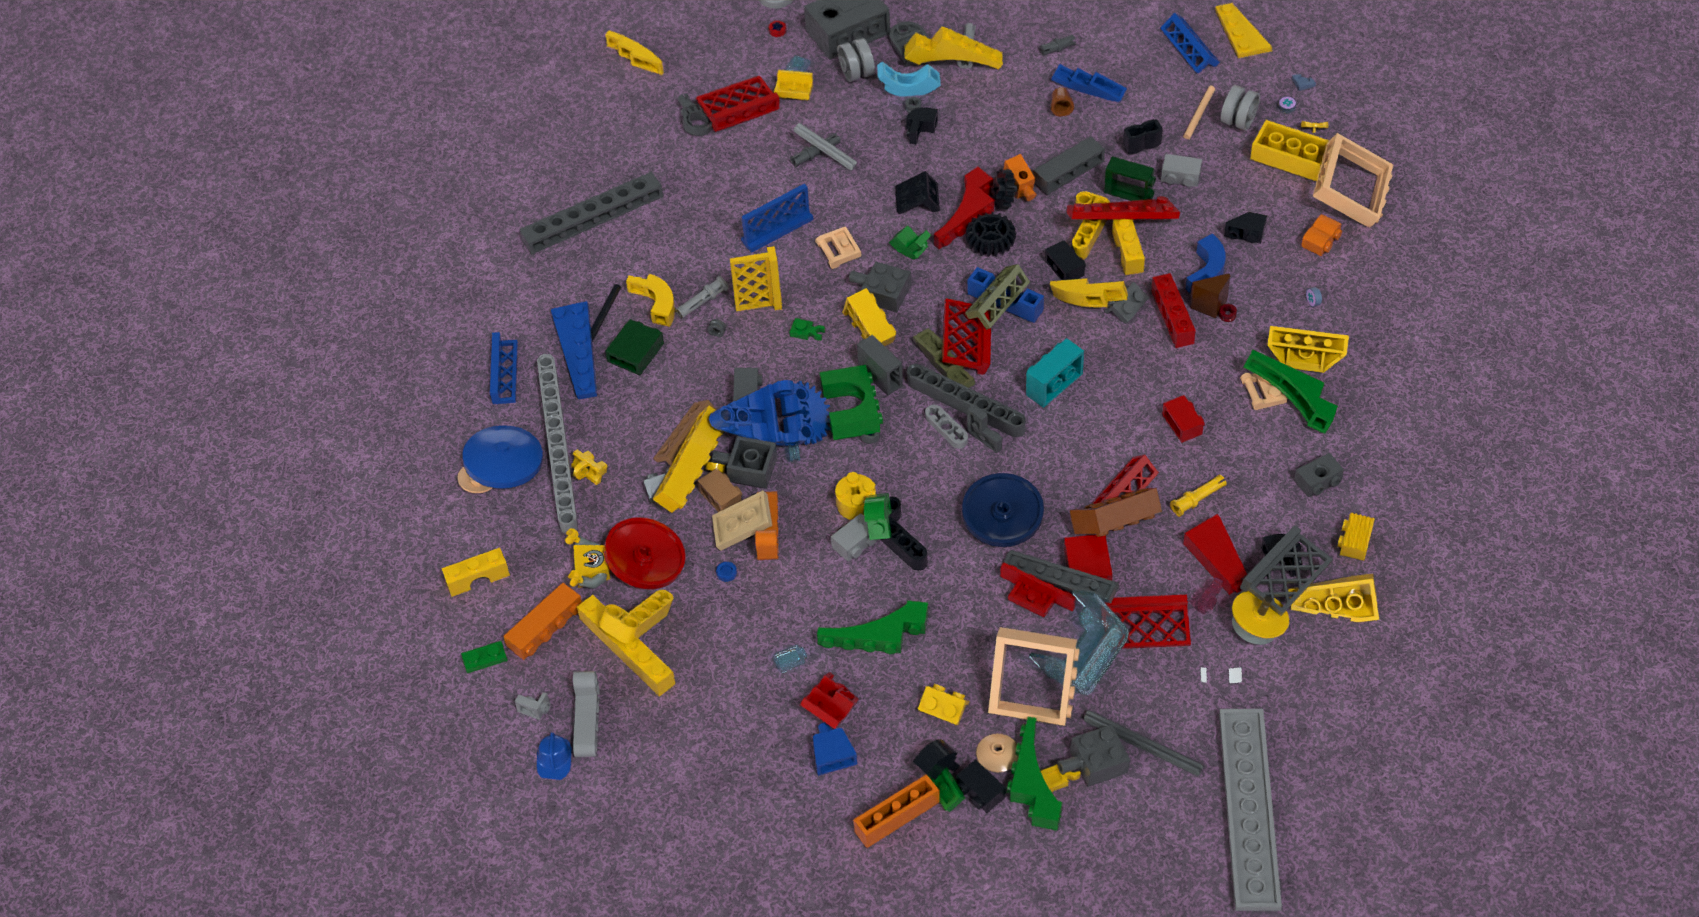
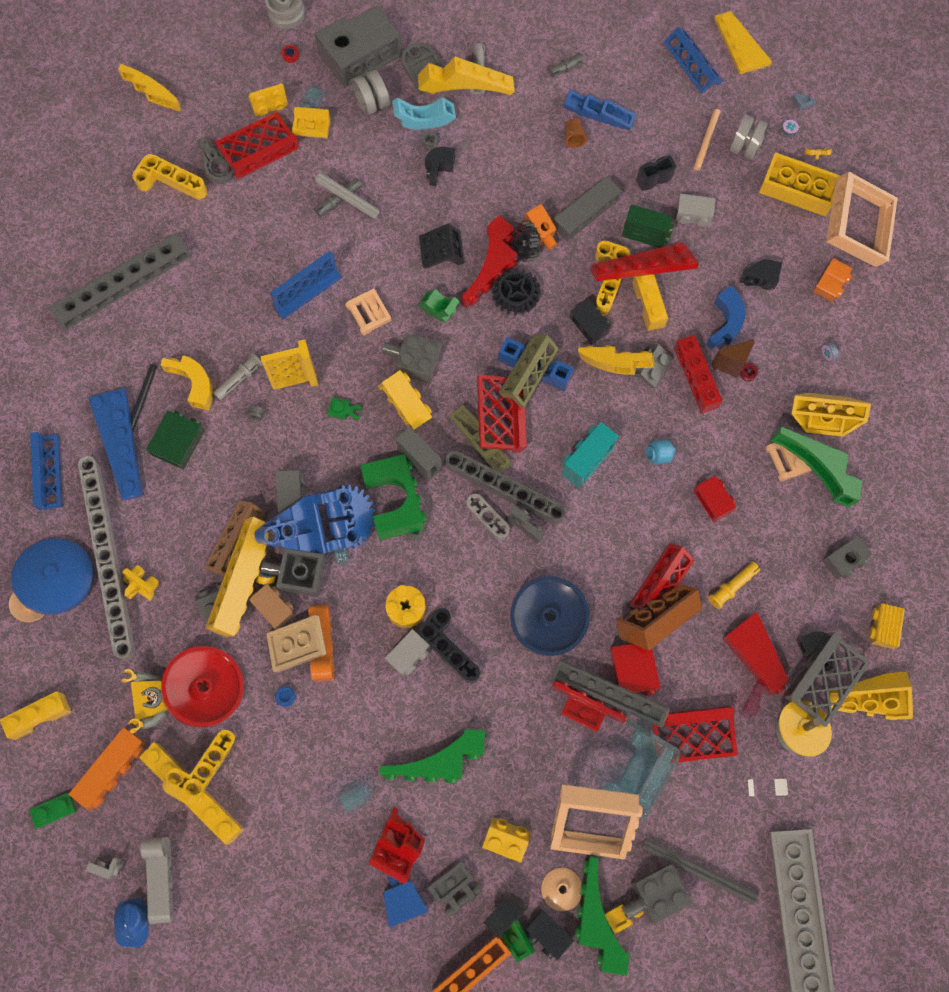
camera: 10 degrees left, 20 degrees up
(647, 124) = (192, 184): none -> yellow beam
(752, 63) = (268, 99): none -> yellow bracket
(876, 514) = (428, 637): green brick -> none
(883, 738) = (450, 884): none -> dark grey plate
(1129, 376) = (660, 451): none -> dark azure head

